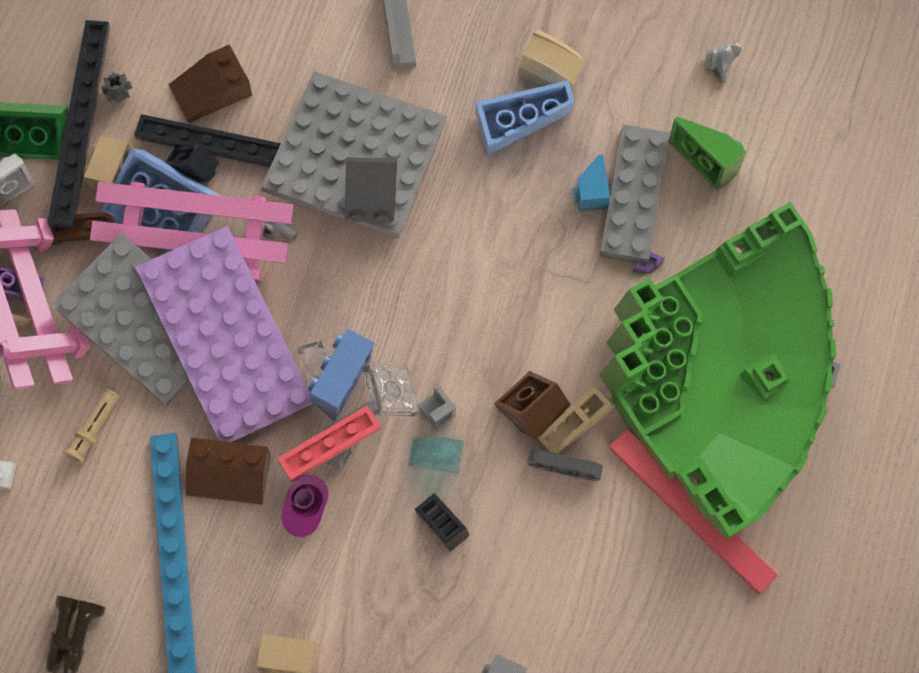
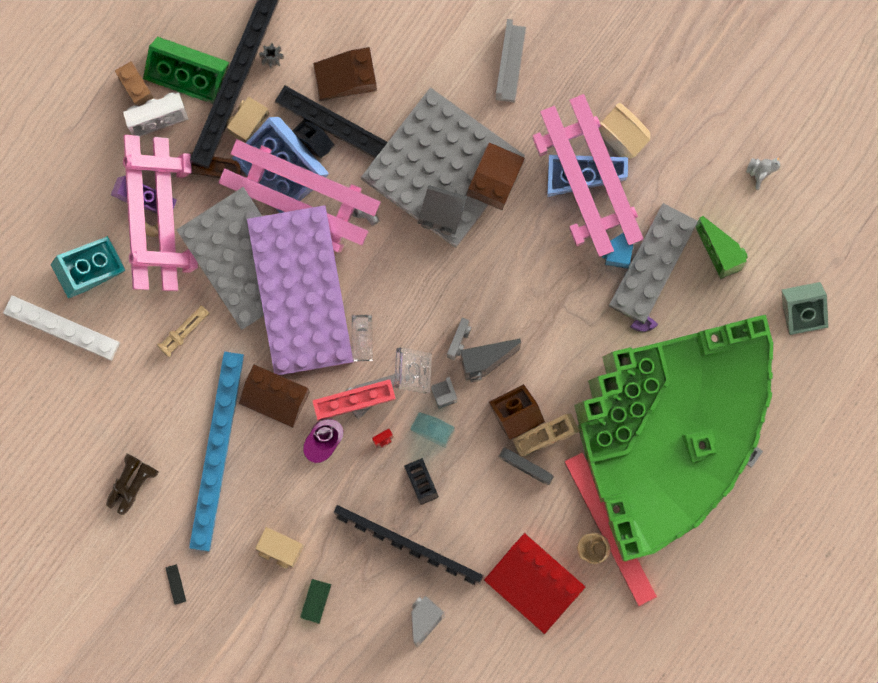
camera: 20 degrees right, 10 degrees up
(340, 373) = (378, 346): medium blue slope -> none
(378, 483) = (383, 438): none -> red plate
(421, 145) = (495, 176): none -> reddish brown slope
(435, 349) = (462, 331): none -> light grey plate
(461, 606) = (416, 550): none -> black plate
(472, 352) = (484, 359): none -> dark grey slope
(483, 81) = (559, 139): none -> bright pink fence
(623, 604) = (534, 583): none -> red slope
(681, 538) = (593, 548): none -> tan hair
(827, 191) = (805, 308): none -> sand green slope

